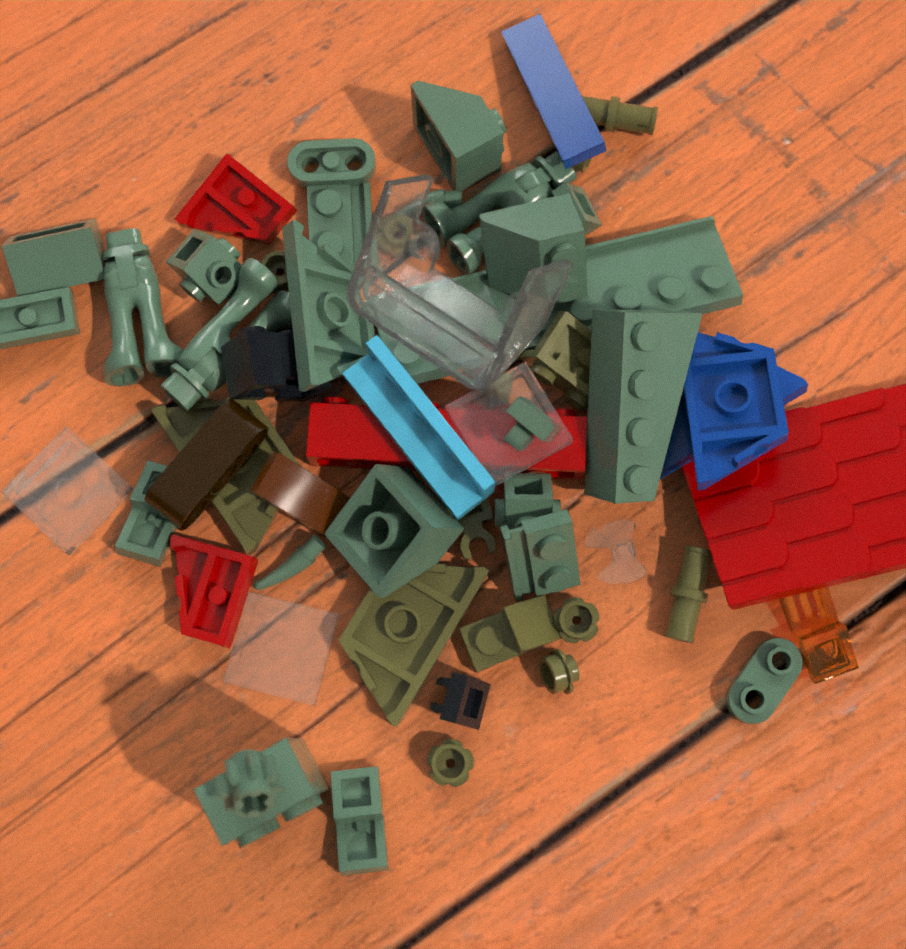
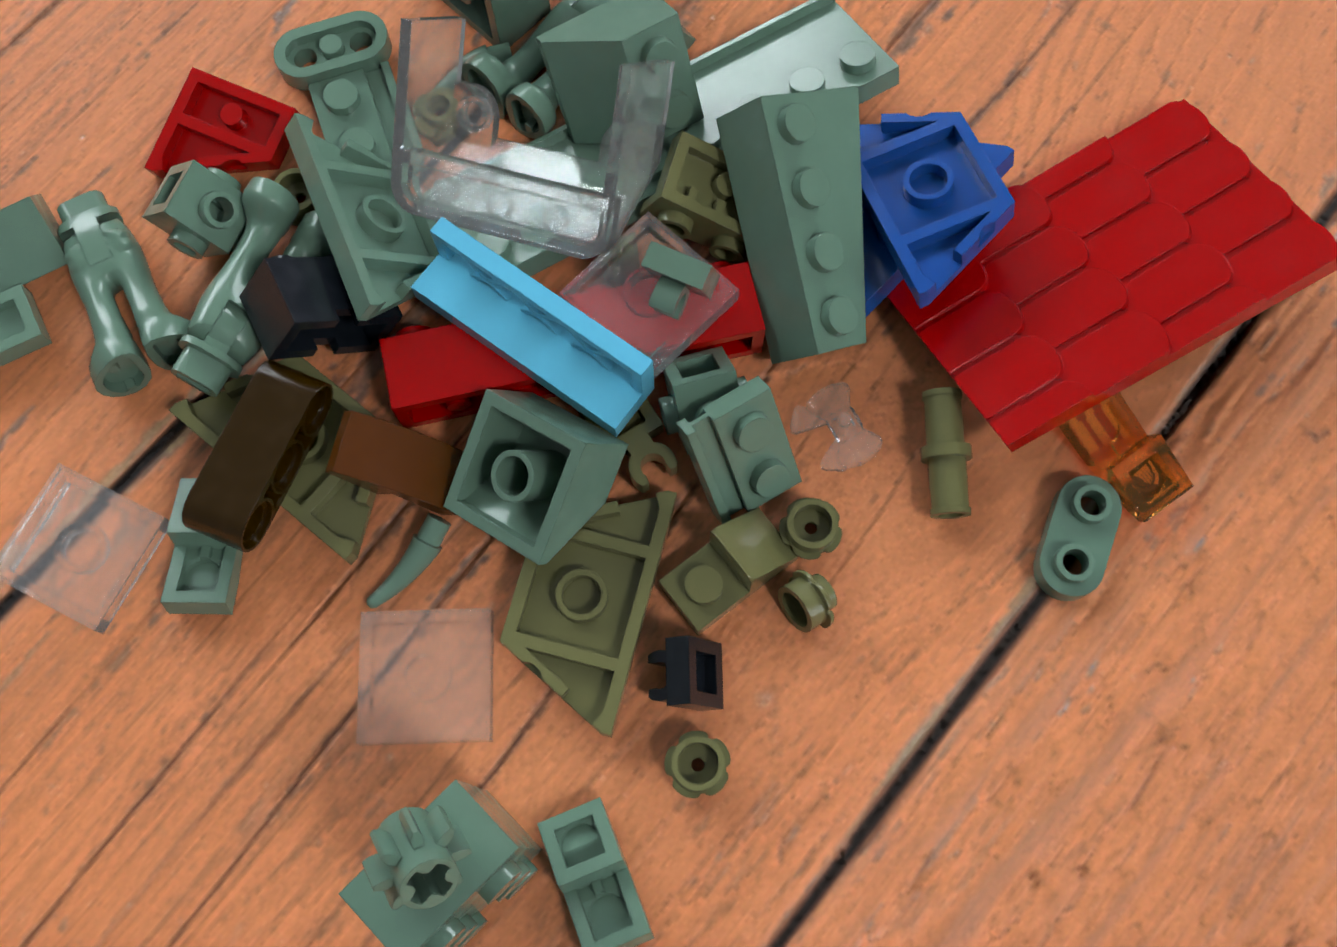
camera: 15 degrees left, 5 degrees down
(211, 589) = (308, 623): red wing -> none

